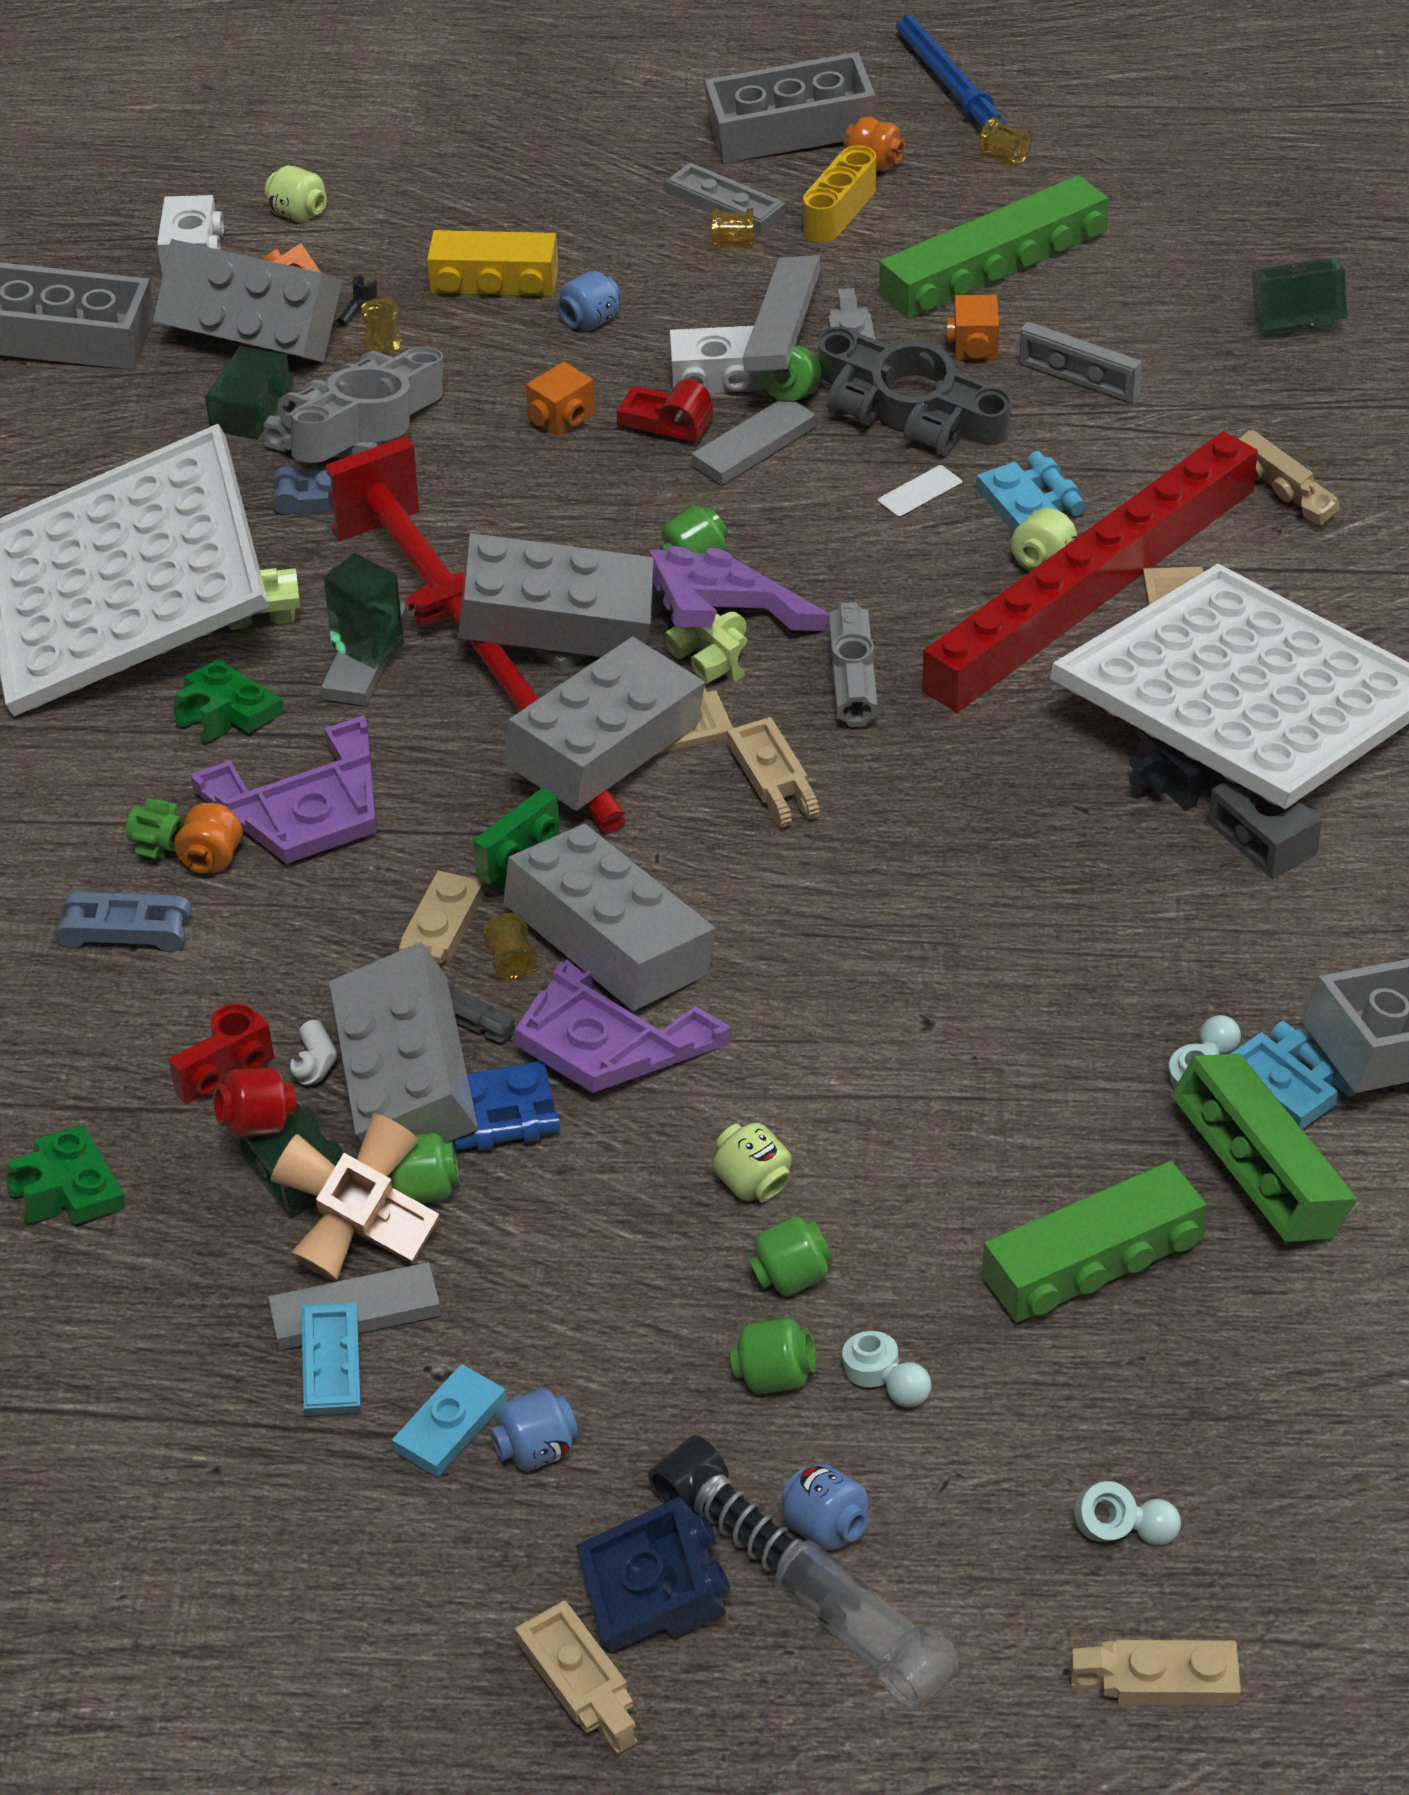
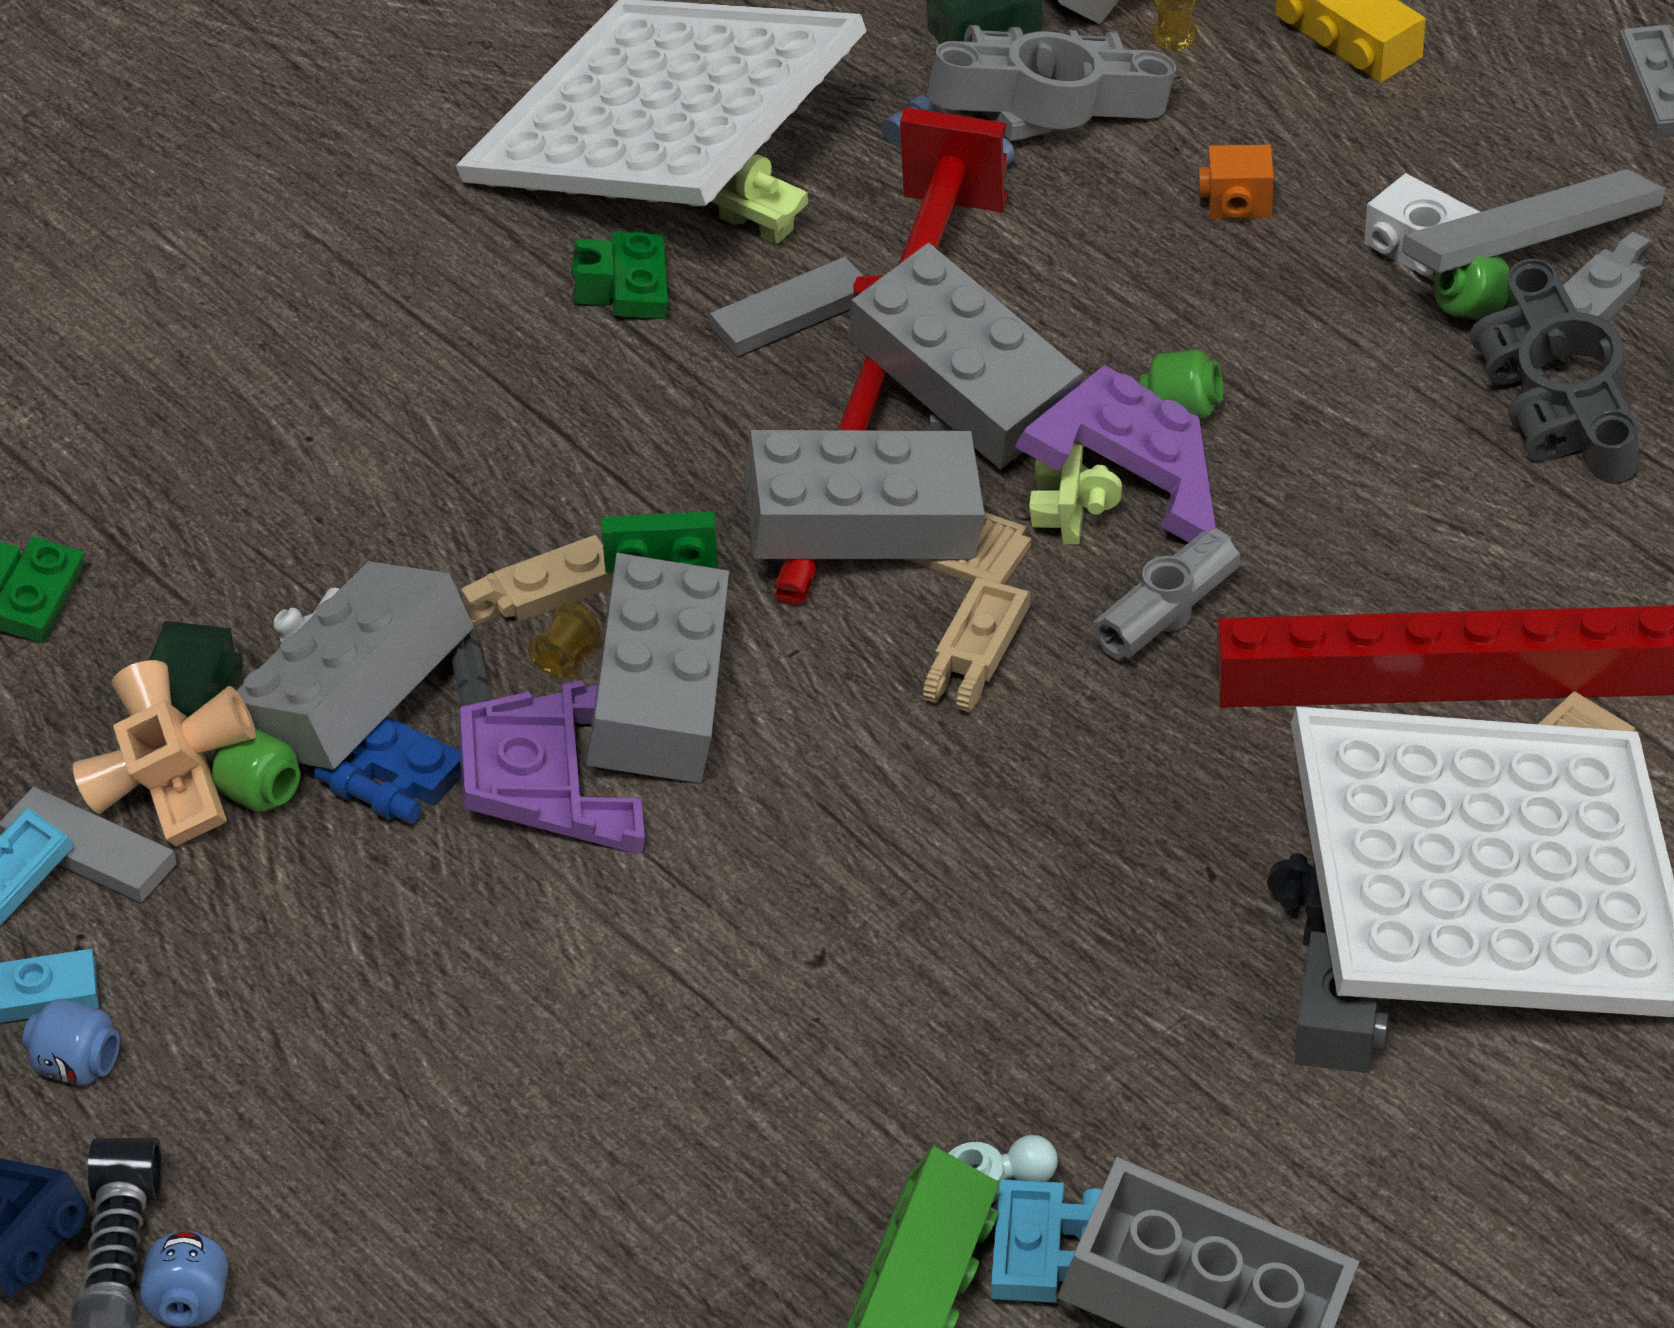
camera: 45 degrees right, 0 degrees up
(123, 919) = (319, 406): sand blue plate -> none
(154, 828) = (428, 346): bright green gear -> none
(208, 838) = (457, 382): orange piece -> none
(237, 1042) = (254, 570): red plate -> none
(253, 1102) = (174, 614): red head -> none
(308, 809) = (580, 414): medium lavender wing -> none
(364, 610) = (791, 261): clear green brick -> none
(588, 301) = (1390, 104): medium blue head -> none
(678, 414) = (1322, 257): red plate -> none
(733, 226) = (1621, 112): clear yellow bush -> none
(752, 1162) = (502, 960): yellowish green head -> none
(753, 440) = (1372, 331): light grey tile -> none
(774, 1355) = (308, 1129): bright green head -> none
(791, 1256) = (428, 1061): bright green head -> none
(873, 1360) = (383, 1202): light aqua plate -> none
(919, 490) = (1469, 478): white sticker -> none
(1018, 493) = (1544, 544): medium azure plate -> none
(1041, 537) = (1499, 587): yellowish green head -> none
(1094, 1241) = (669, 1243): bright green brick -> none

